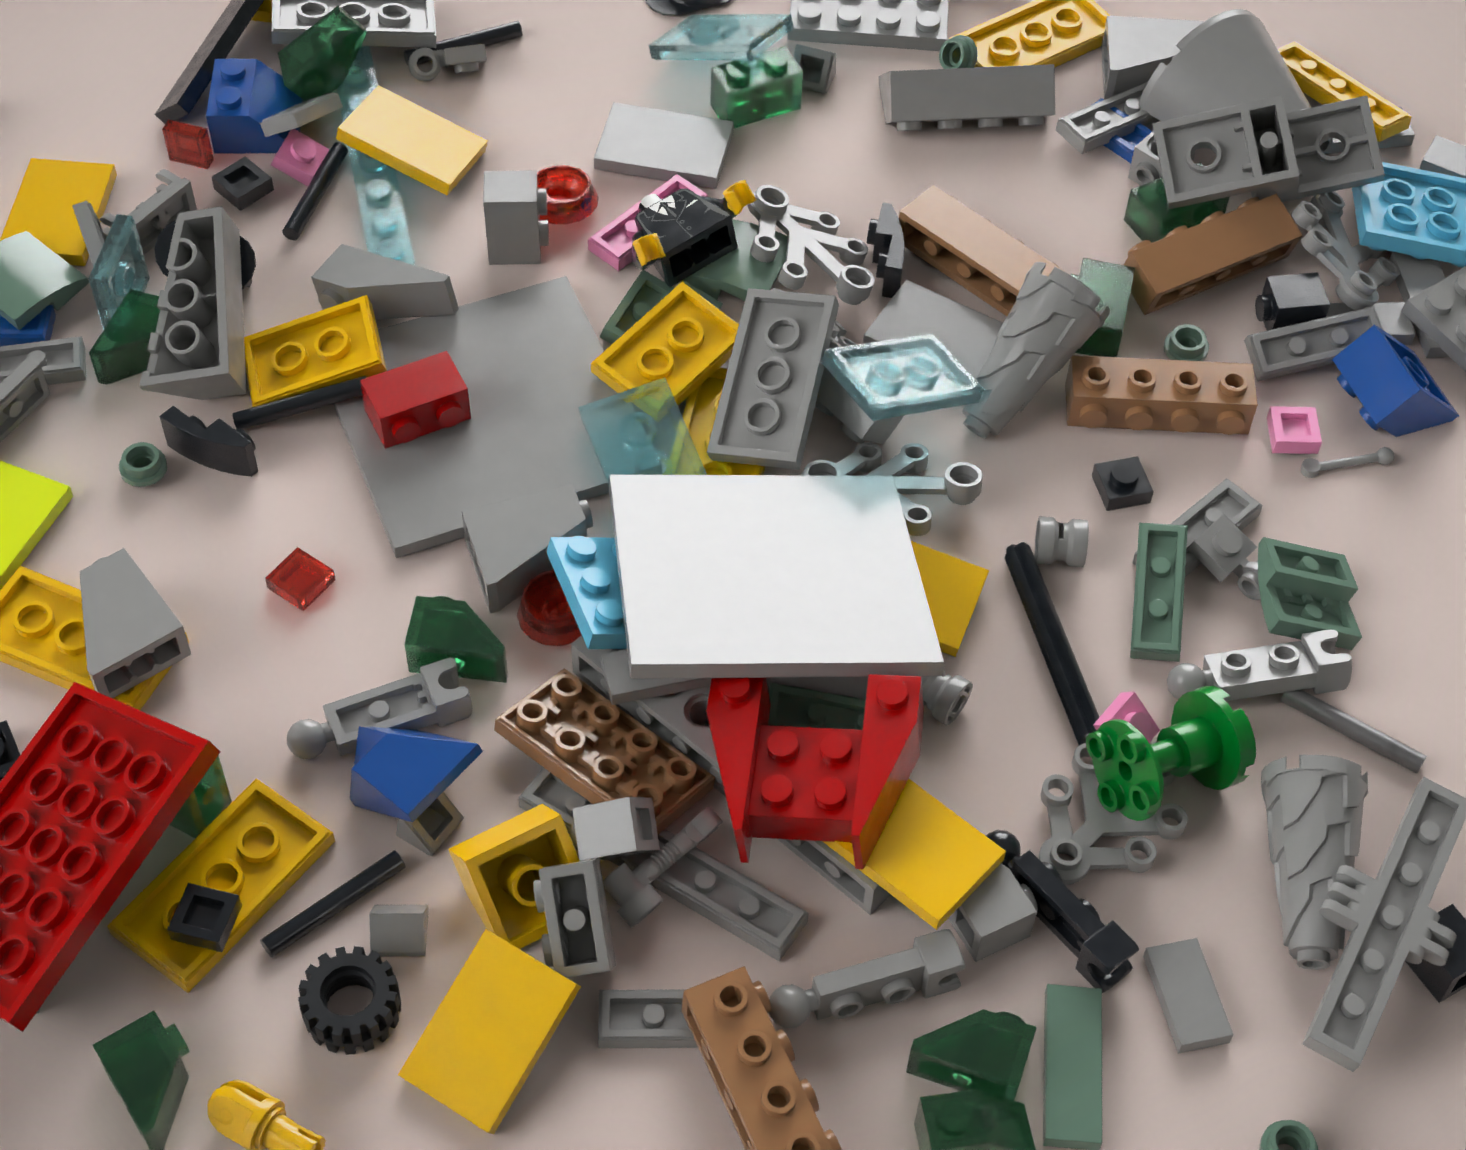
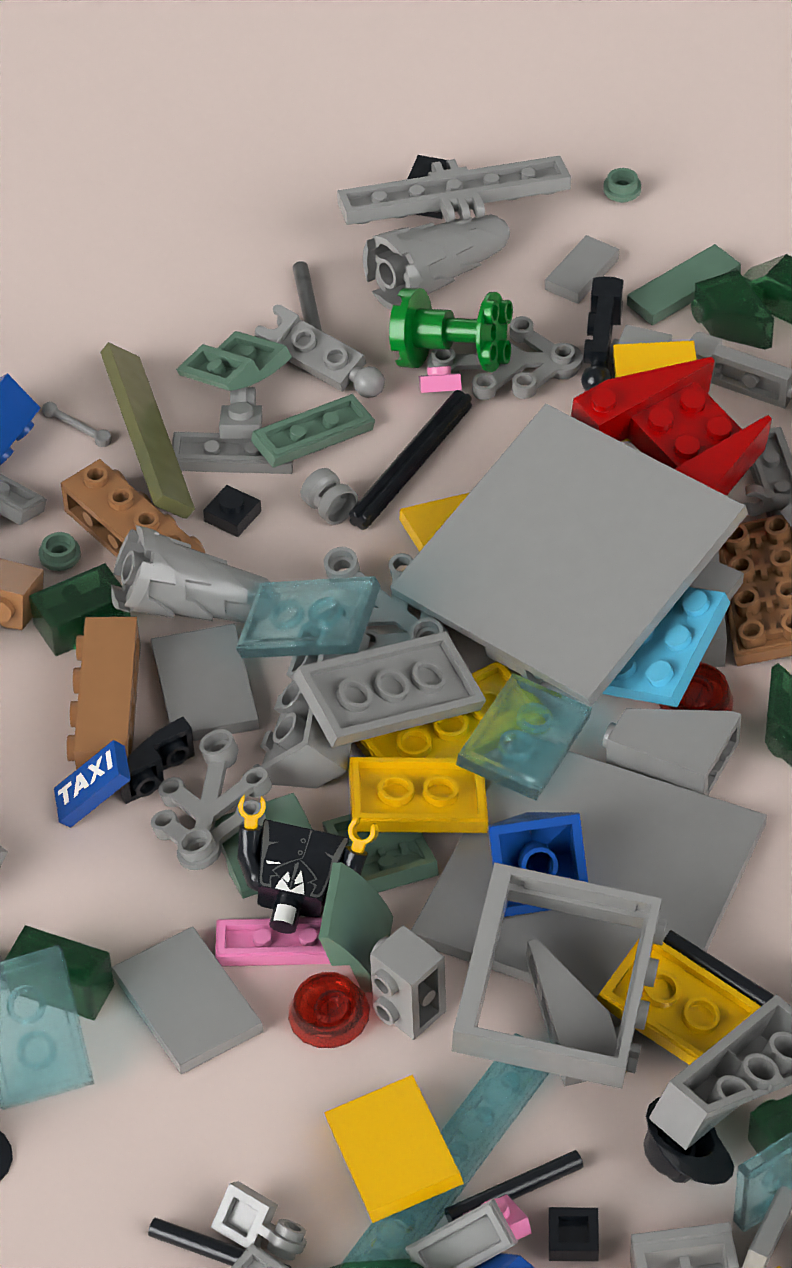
camera: 130 degrees left, 5 degrees down
(372, 207) = (575, 898): none -> light grey window
(416, 399) = (657, 876): red brick -> none
(519, 359) = (542, 844): none -> blue slope
(593, 226) = (353, 922): none -> sand green slope
(892, 190) = (92, 783): none -> blue tile
(1277, 474) = (147, 431): none -> olive tile
(1294, 430) = (83, 450): bright pink plate -> none

